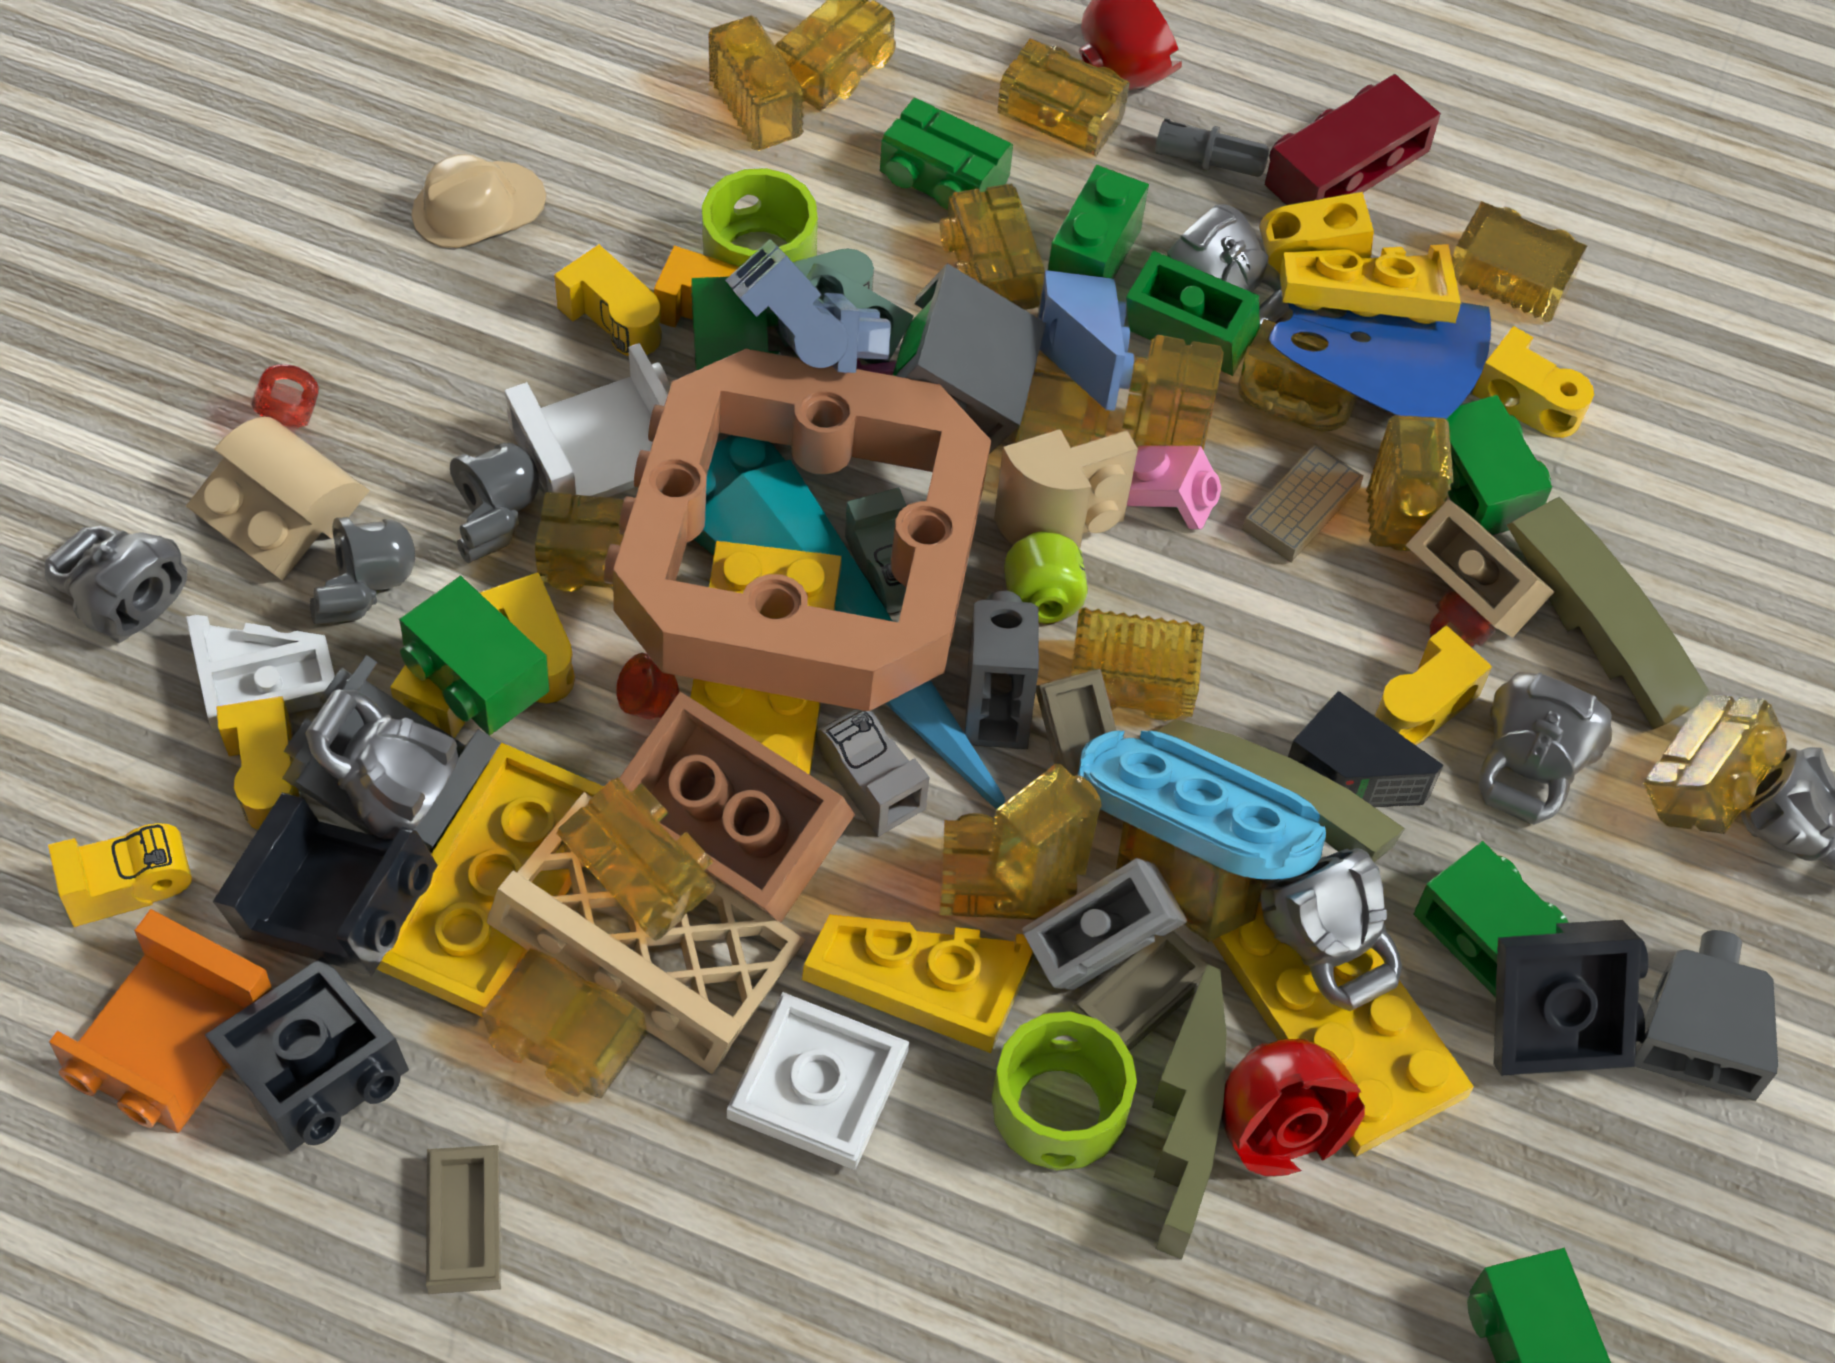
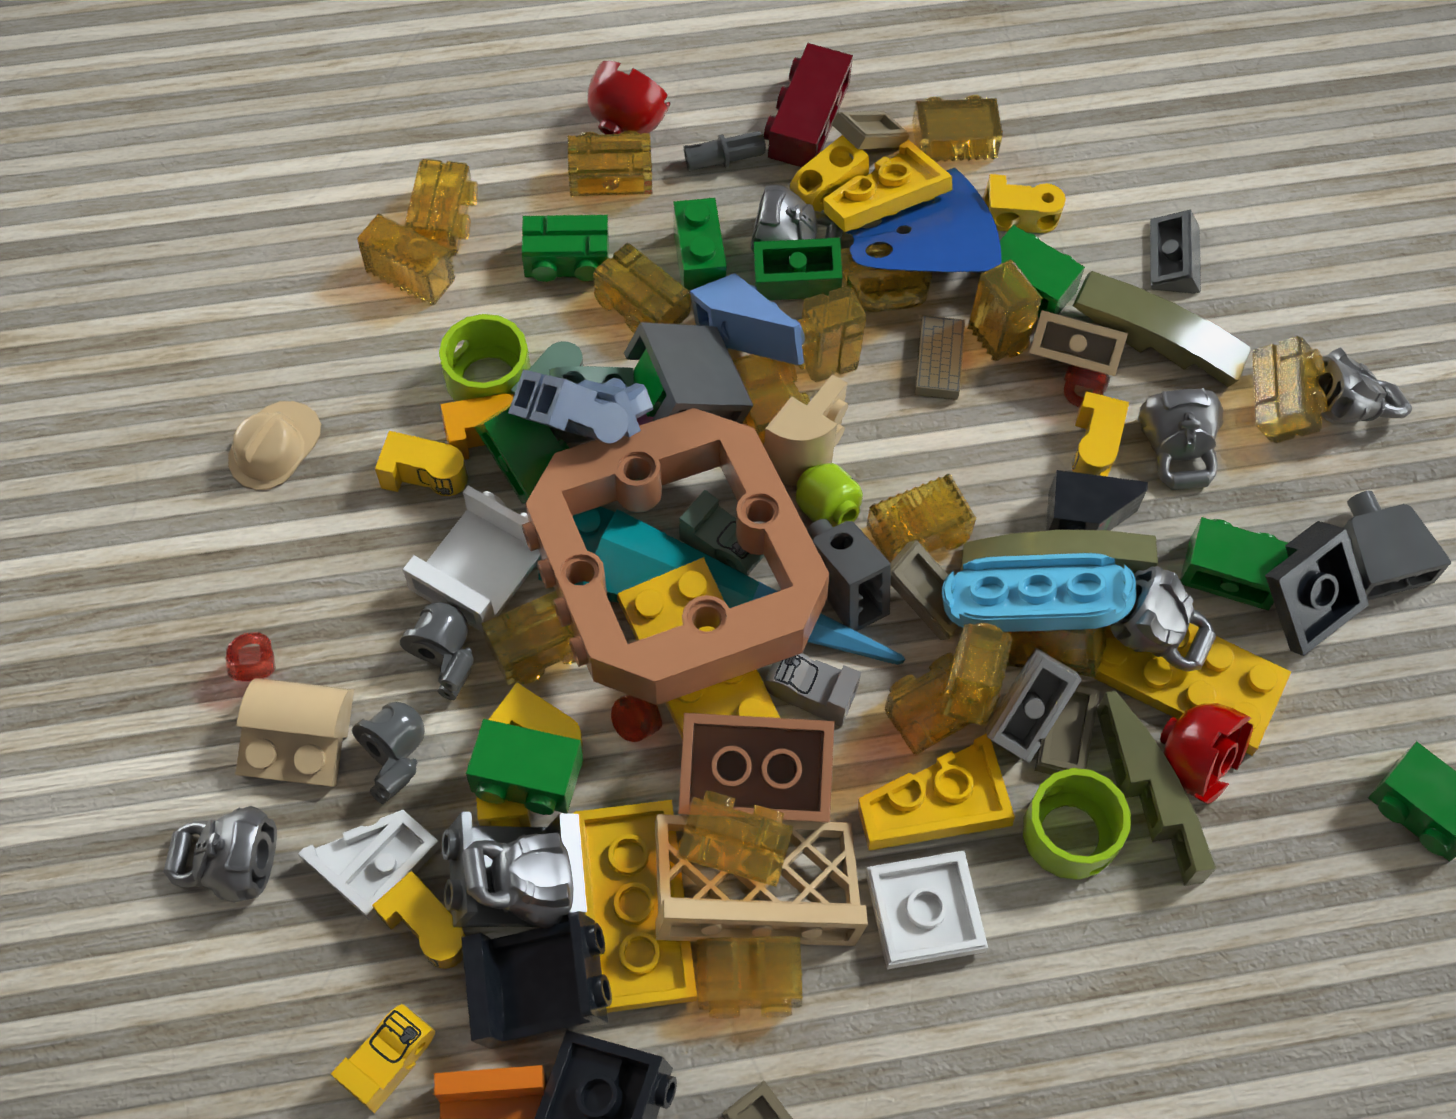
camera: 30 degrees left, 5 degrees up
(1175, 479) = (864, 385): bright pink bracket -> none
(1402, 206) = (870, 129): none -> dark tan tile
(1701, 542) = (1175, 253): none -> dark grey slope

